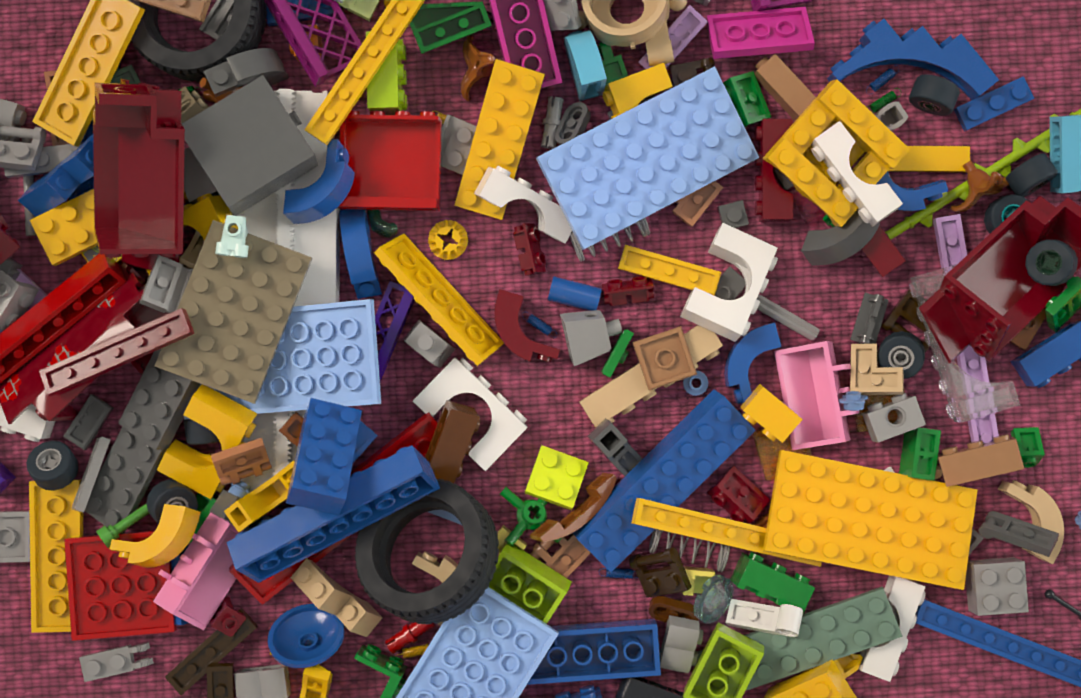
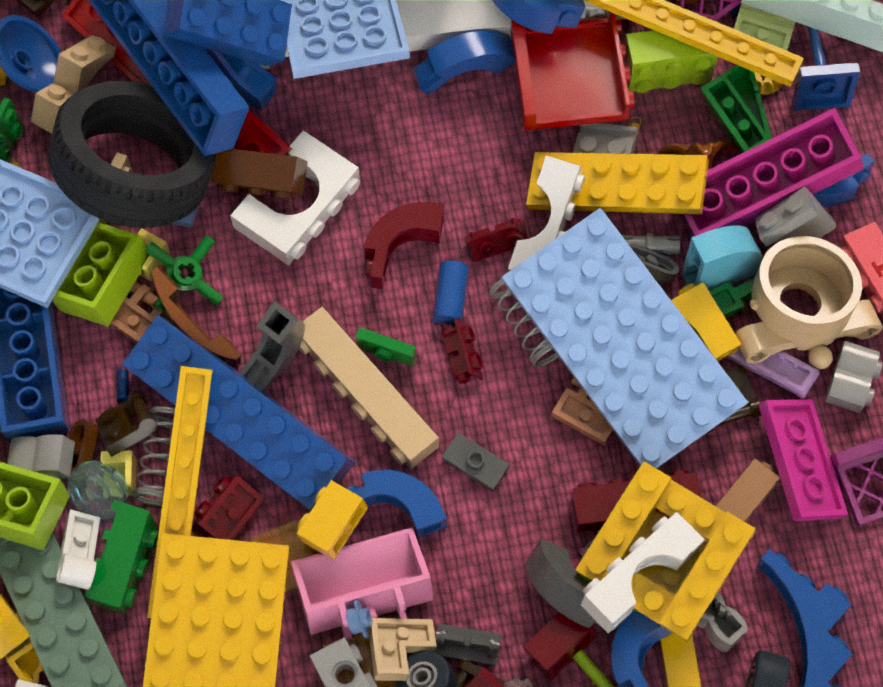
camera: 85 degrees right, 20 degrees down
(380, 226) = (499, 80): clear green arm -> none
(396, 326) = (377, 105): dark purple fence -> none
(407, 635) = (32, 161): red pin -> none
(429, 344) = (374, 137): light grey torso -> none
(439, 298) = (423, 143): yellow plate -> none
(451, 250) = (501, 162): yellow gear -> none
(539, 324) = (409, 261): blue piece -> none
(556, 477) = (230, 298): neon yellow plate -> none
(588, 334) = (404, 307): light grey torso -> none
(664, 358) = (385, 392): medium nougat tile -> none
(668, 270) = (493, 395): yellow tile -> none
(696, 391) = (361, 451): medium blue plate -> none
(733, 214) = (573, 463): dark grey plate -> none
(747, 98) = (717, 455): green bracket -> none
(754, 260) = (447, 463): white arch -> none
(787, 318) = (456, 539): light grey axle -> none
(882, 79) = (776, 623): blue piece -> none
(883, 101) = (753, 633): green piece -> none

